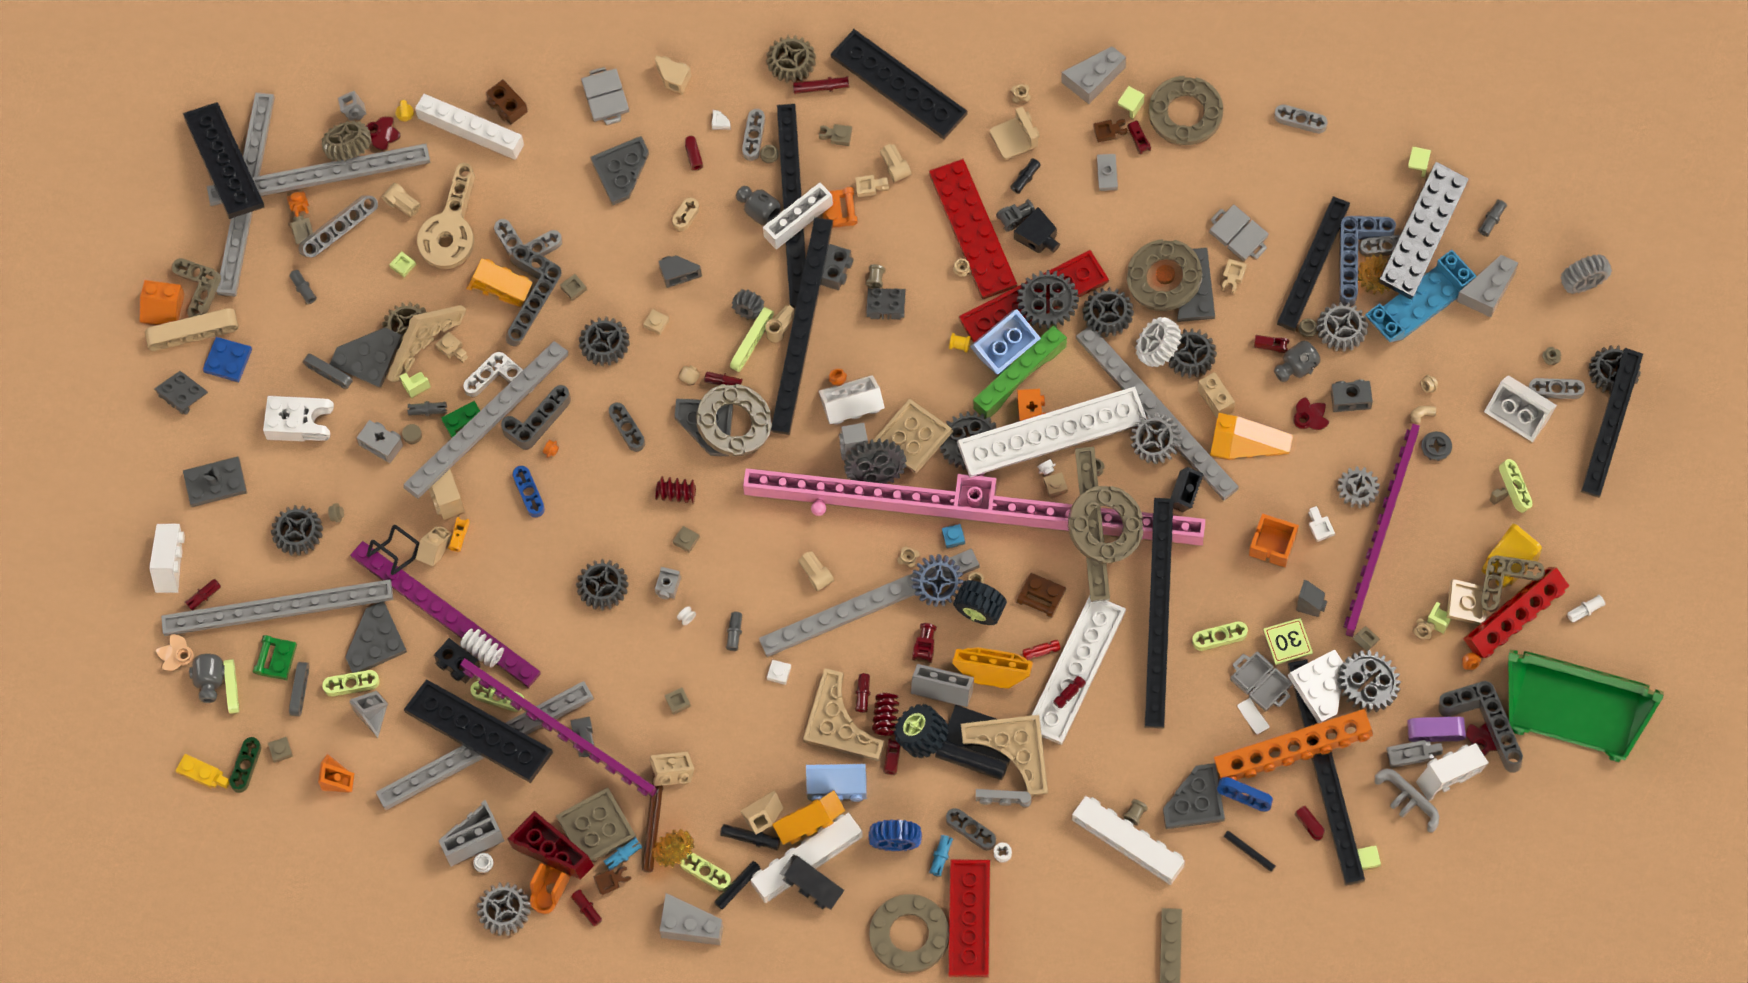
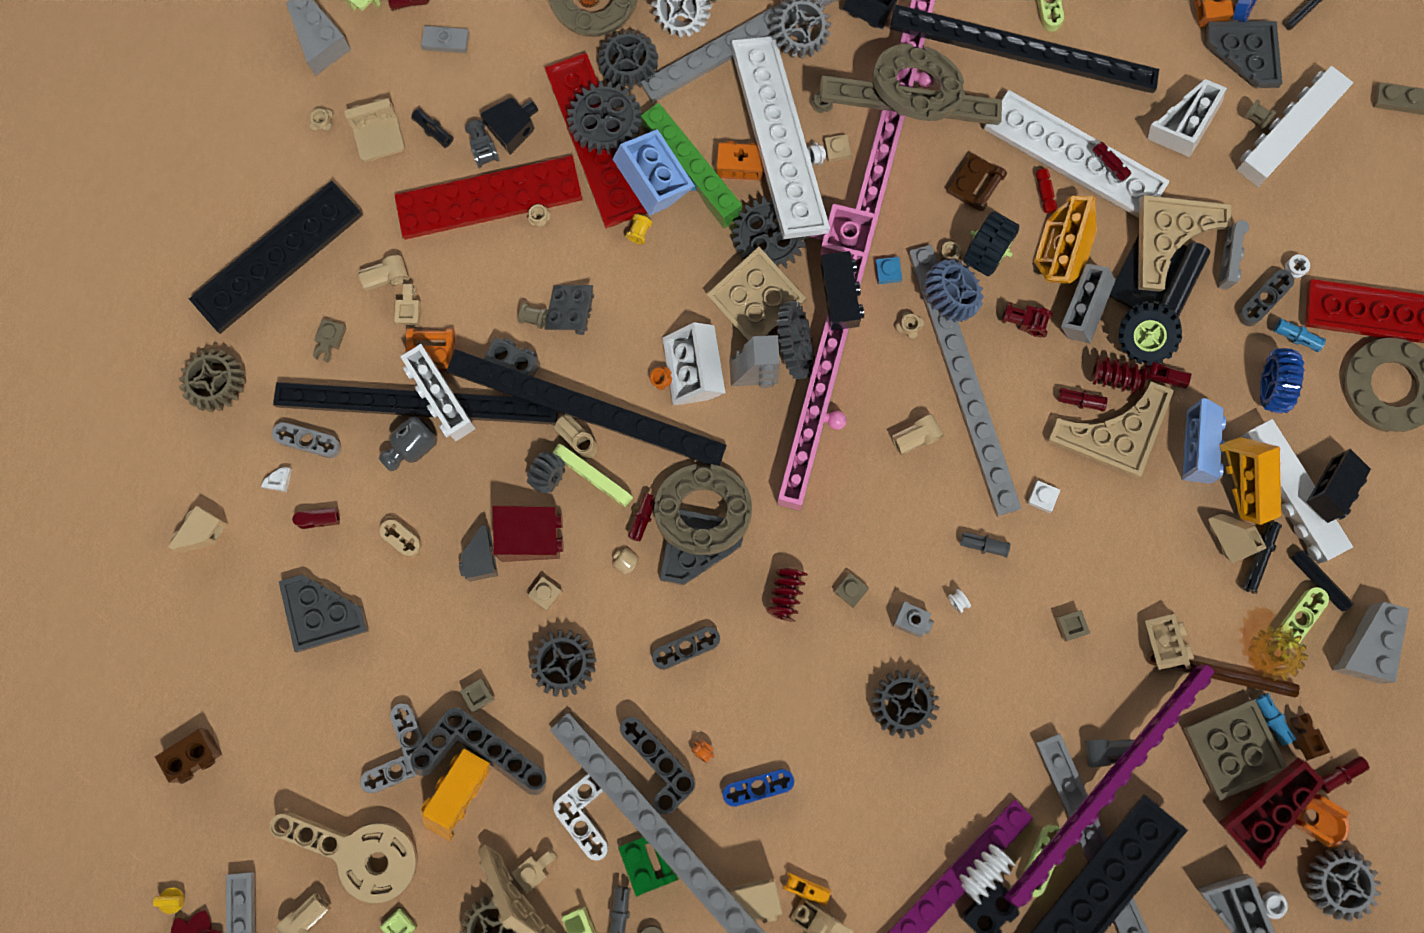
camera: 80 degrees left, 10 degrees up
(469, 126) = (213, 812): white brick -> none
(605, 95) = (215, 621): light grey piece -> none
(698, 298) = (527, 533): none -> dark red slope
(769, 154) = (338, 424): dark tan plate -> none
(821, 85) = (257, 342): dark red pin -> none
(918, 489) = (841, 290): none -> black brick
(1107, 131) = (392, 30): reddish brown plate -> none
(1119, 753) = (1189, 119): none -> white wedge

